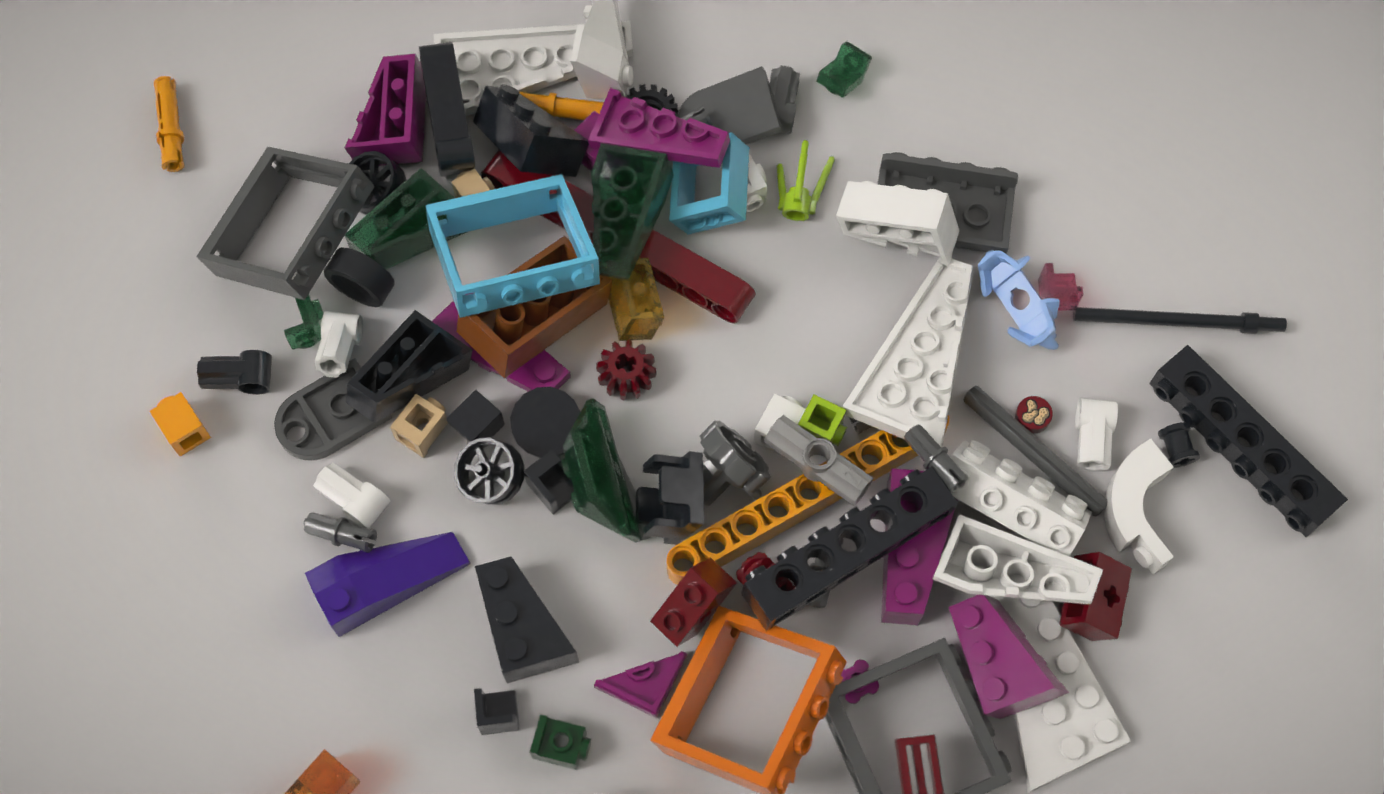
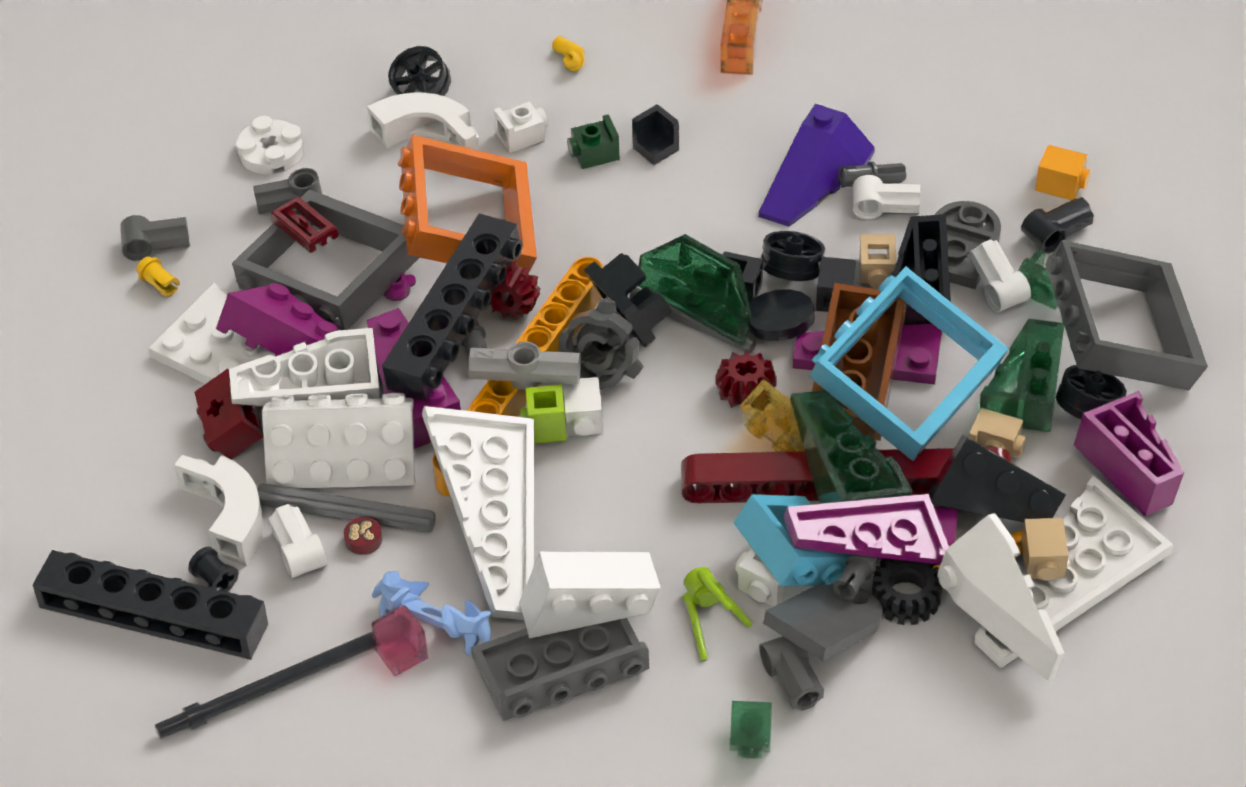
camera: 150 degrees right, 20 degrees down
(359, 277) = (1019, 300): black tyre -> none
(446, 109) = (1076, 465): black beam -> none
(521, 625) = (685, 184): black wedge -> none
(535, 64) = (1044, 548): none -> tan brick
(644, 685) = (561, 208): magenta tile -> none
(693, 601) = (556, 243): dark red brick -> none
(935, 457) = (421, 390): dark grey axle -> none

